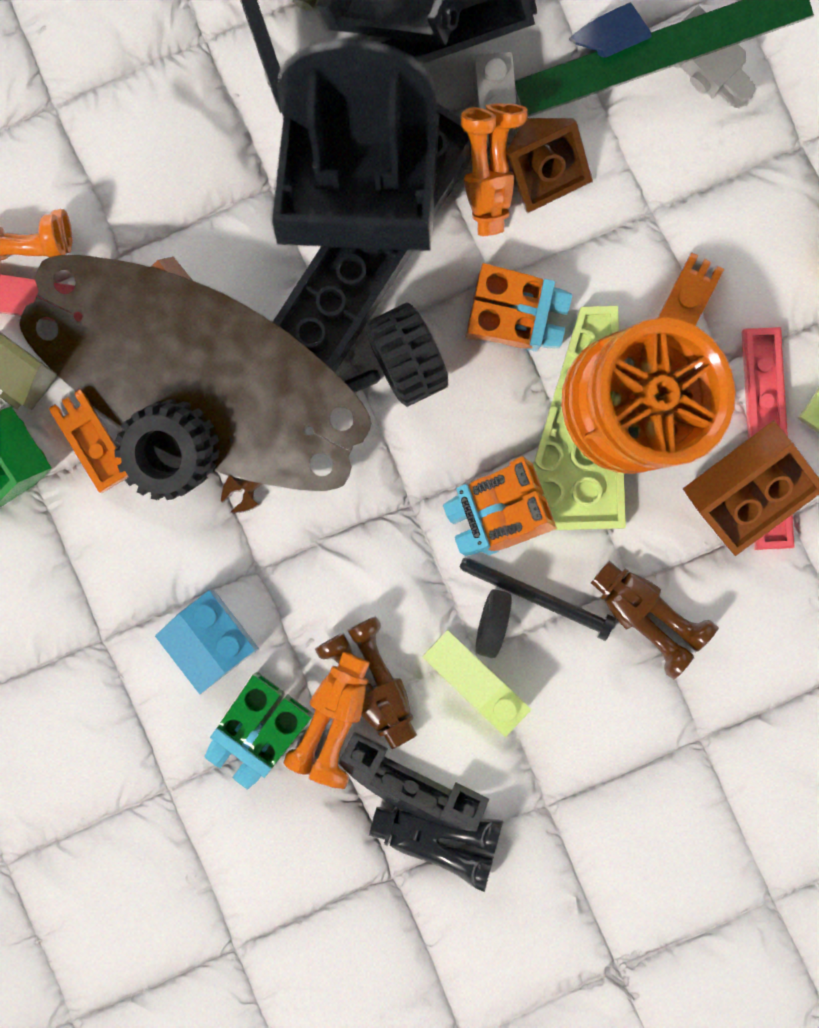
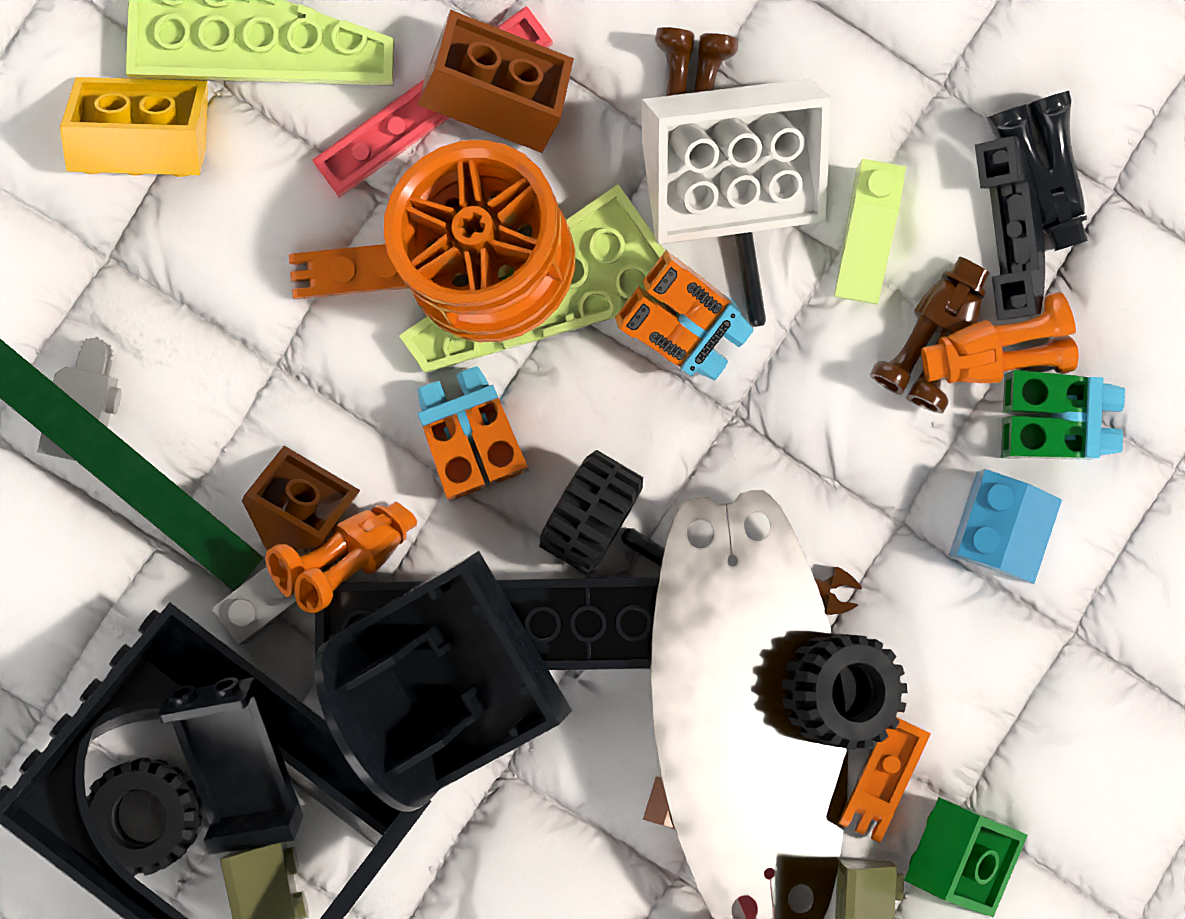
camera: 125 degrees left, 0 degrees up
(493, 623) = (801, 251): black tyre -> none
(589, 620) = (736, 159): none -> white slope
(613, 31) = (125, 518): dark blue slope -> none

